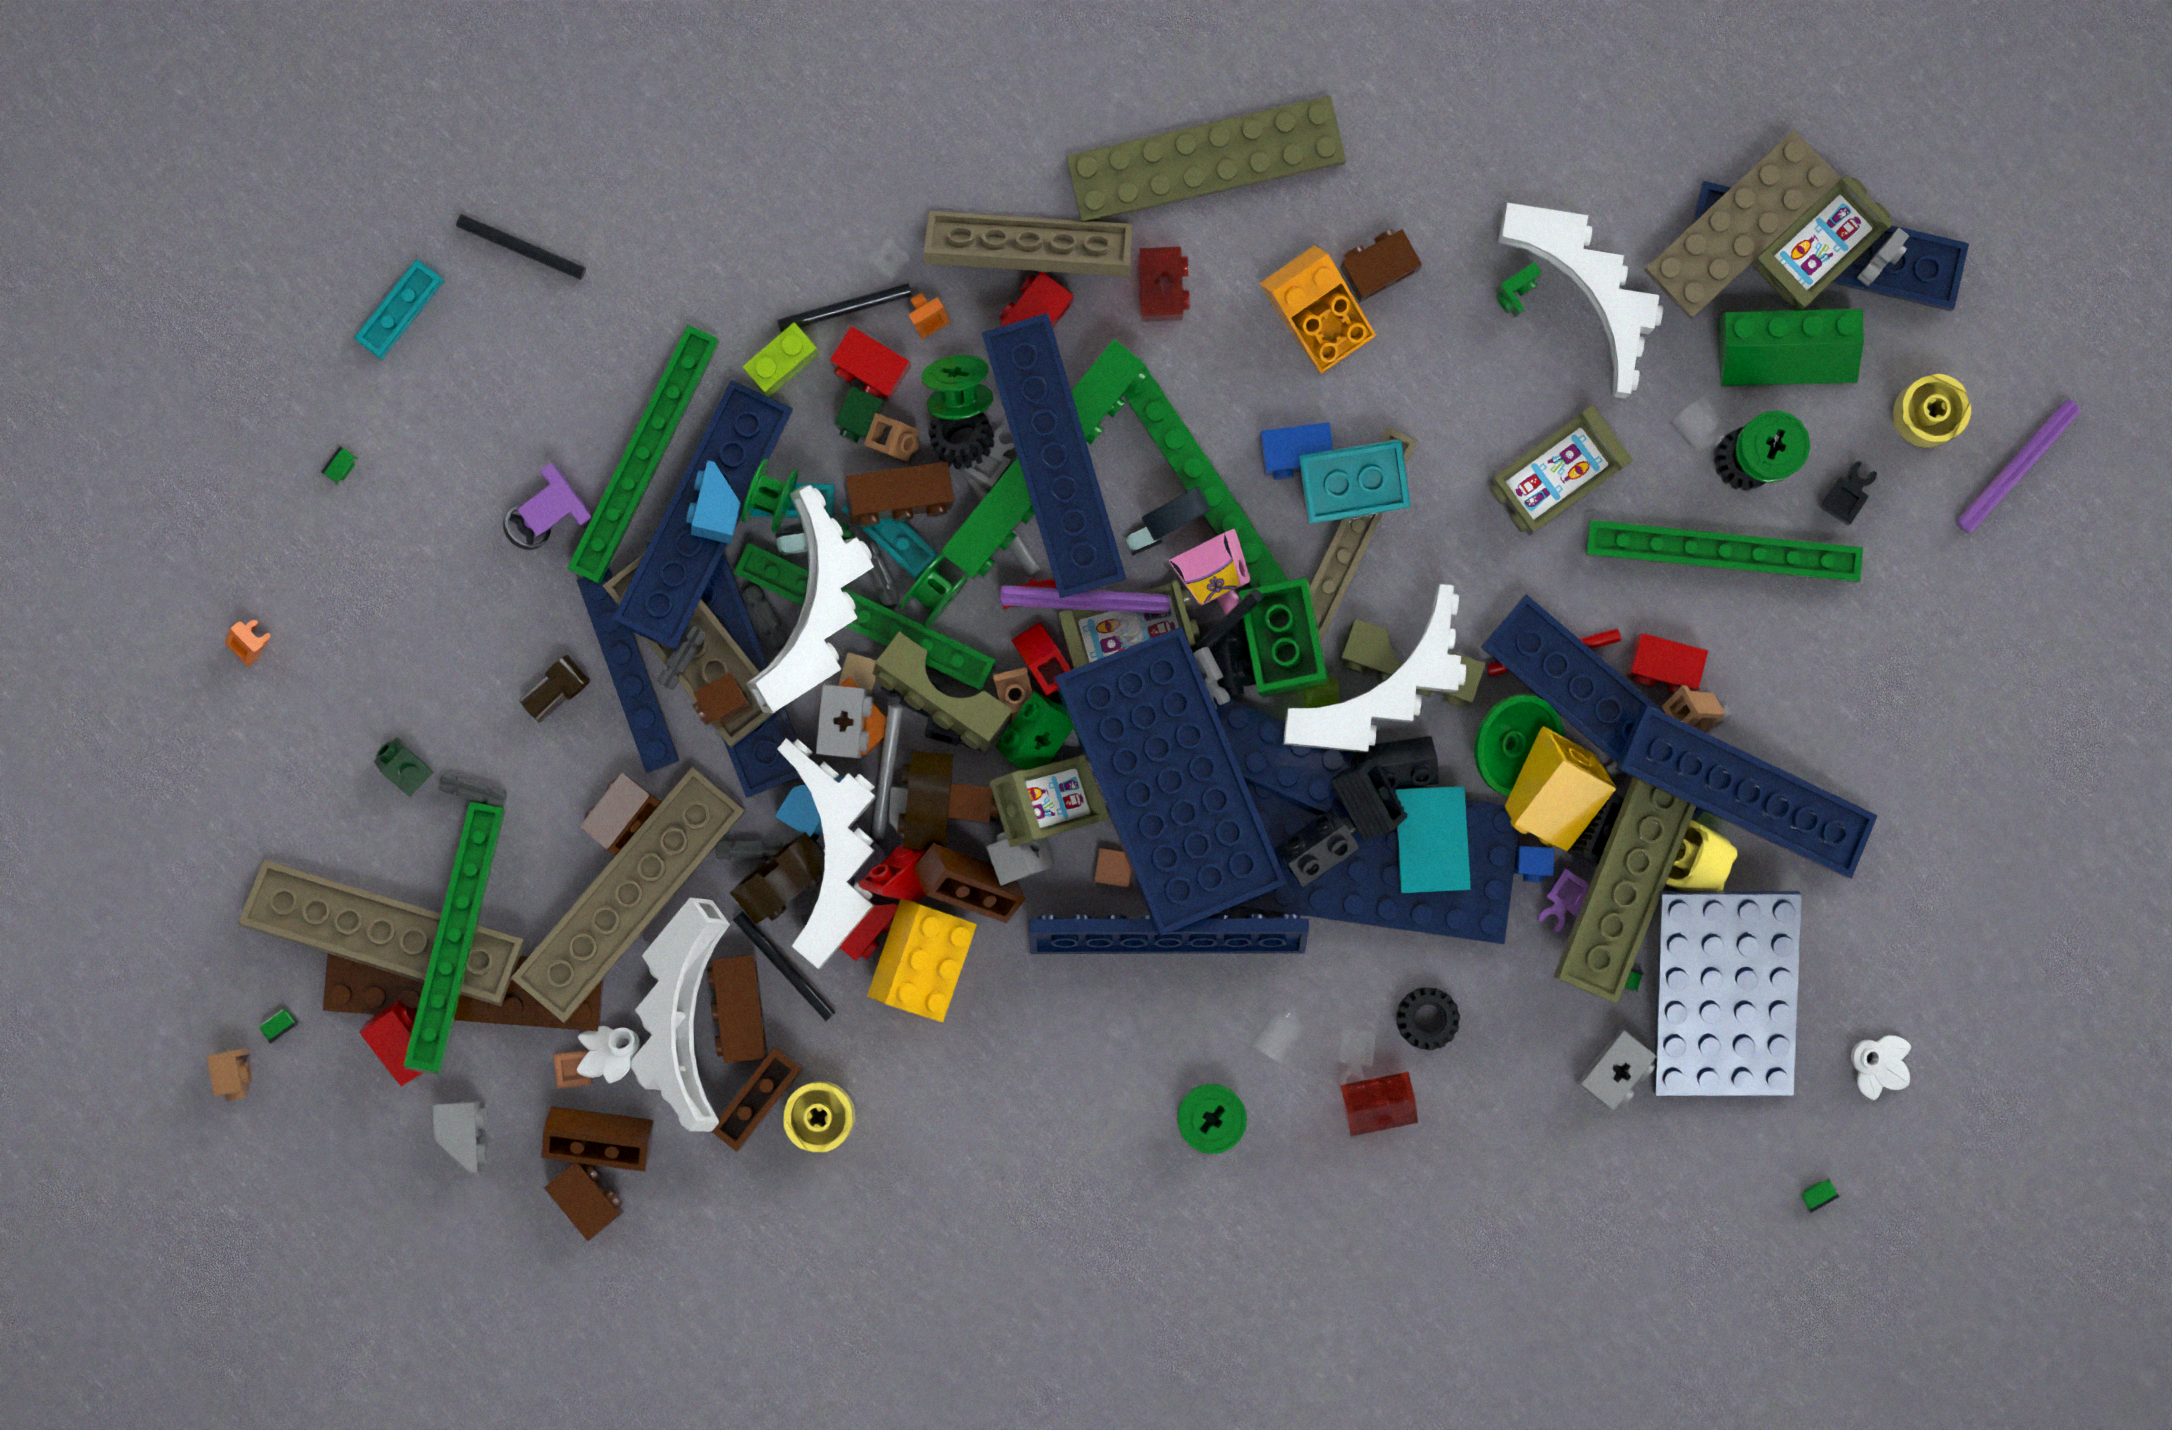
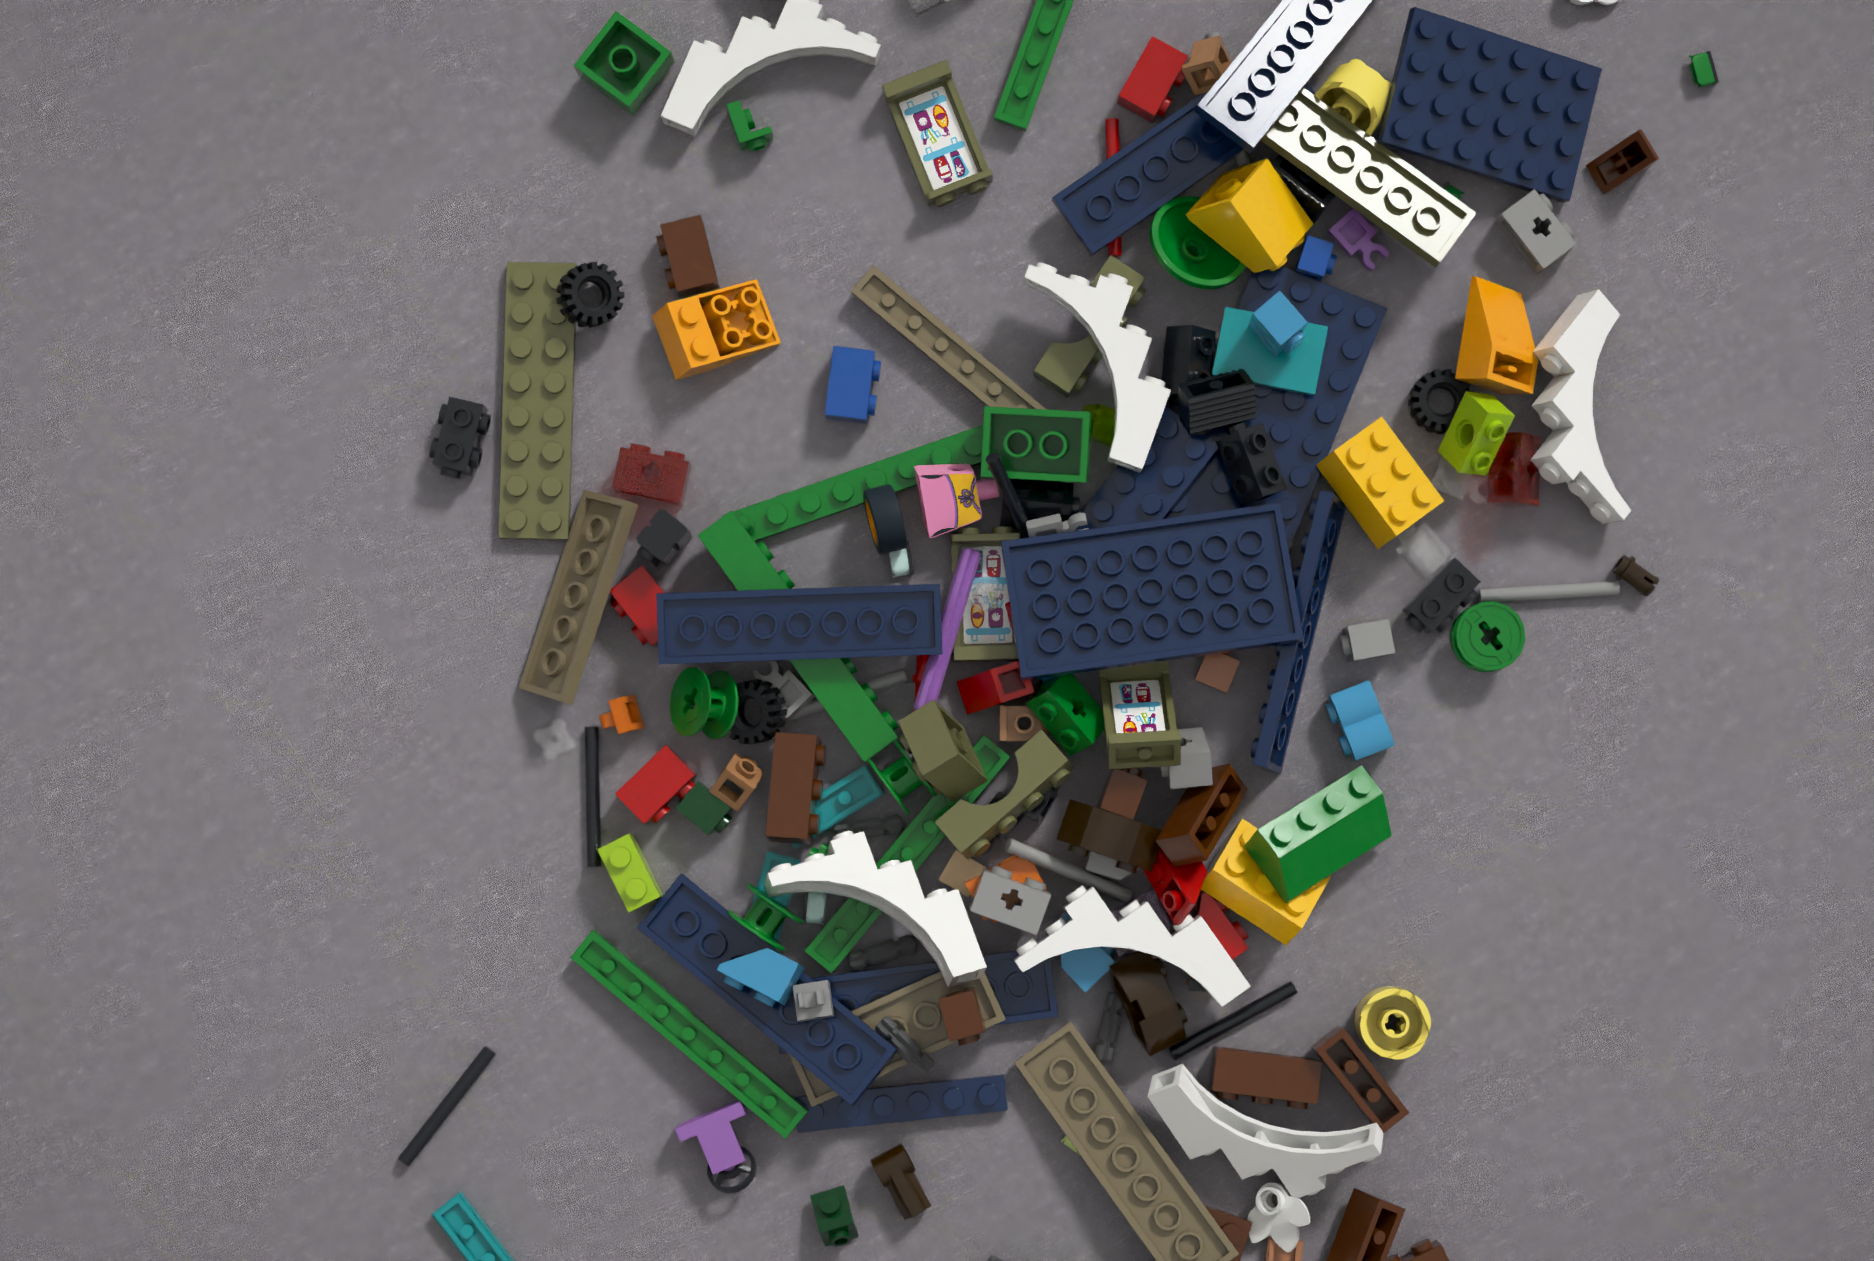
camera: 75 degrees left, 0 degrees up
(505, 634) = (834, 1216): none -> dark green bracket
(619, 813) = (1043, 1146): brick -> none
(701, 559) = (813, 1000): none -> light grey tile
(968, 621) = (941, 751): none -> olive brick
(980, 1002) = (1321, 834): none -> green slope
(1099, 1015) = (1359, 720): none -> dark azure brick
(1103, 308) = (663, 539): none -> black brick
(1151, 94) = (458, 443): none -> black brick
(1178, 1003) = (1367, 640): none -> light grey brick
(1238, 1063) = (1440, 596): none -> black brick
(1270, 1168) = (1549, 591): none -> light grey bar
(1308, 1247) = (1635, 575): none -> dark brown pin
(1332, 976) = (1379, 482): none -> yellow brick
(1333, 195) = (570, 294): none -> black tyre
(1354, 481) = (898, 336): teal tile -> none
(1403, 1057) = (1476, 433): none -> lime brick
(1453, 1138) = (1566, 406): none -> white arch
(1456, 838) = (1278, 325): none -> dark azure brick
(1500, 1056) = (1496, 341): none -> light orange slope
(1549, 155) = (624, 63): none -> green brick
(1706, 1137) = (1623, 162): none -> reddish brown slope

